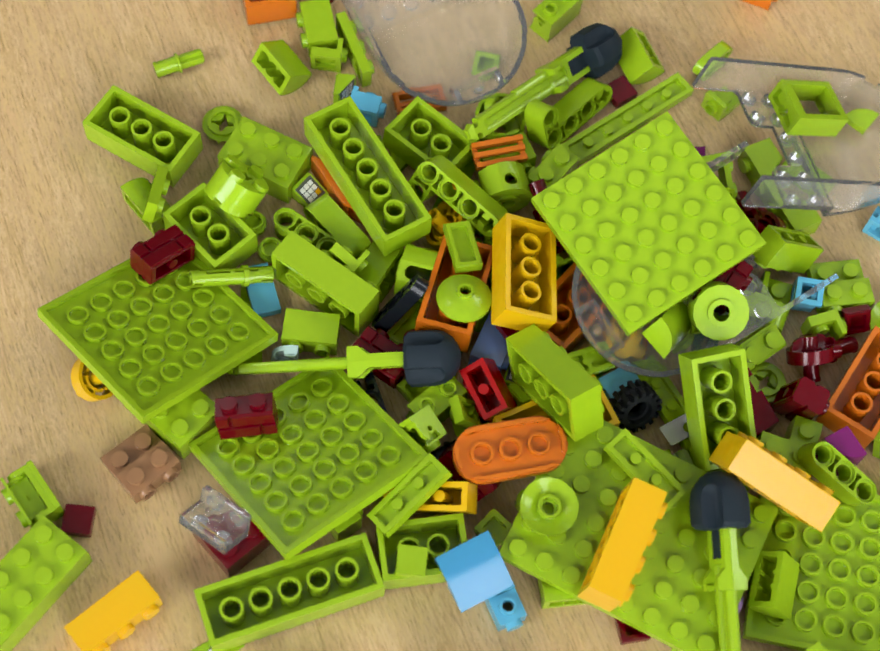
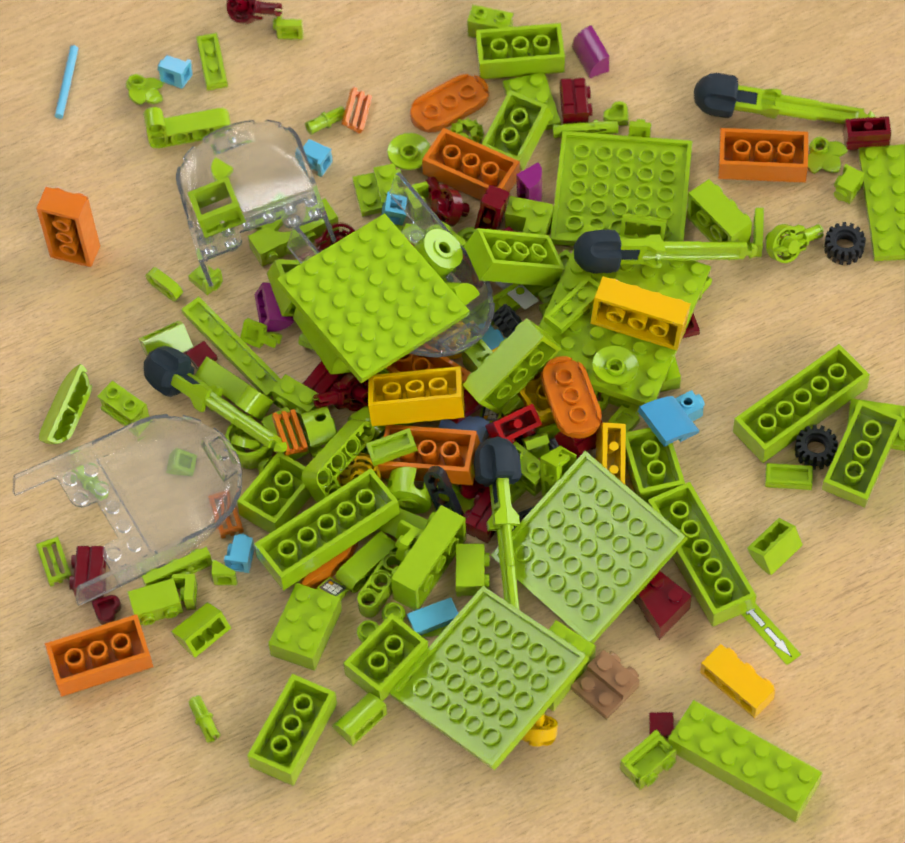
camera: 85 degrees left, 5 degrees down
(155, 202) = (360, 700): lime plate -> none
(162, 254) = (419, 685): dark red brick -> none
(216, 117) = (260, 664): lime gear -> none
(217, 520) = (658, 600): clear bracket -> none
(233, 276) = (424, 612): lime pin -> none
(237, 187) = (348, 631): lime brick -> none
(246, 415) = (563, 594): dark red brick -> none
(285, 353) = (494, 582): light aqua tile -> none
(409, 495) = (618, 463): lime plate -> none
(411, 561) = (668, 462): lime tile -> none
(460, 306) = (446, 446): lime dish -> none
(775, 479) = (570, 218): yellow brick -> none
(787, 250) = (357, 213): lime brick -> none
(849, 475) = (553, 184): lime beam -> none
(857, 318) = (410, 174): dark red tile -> none

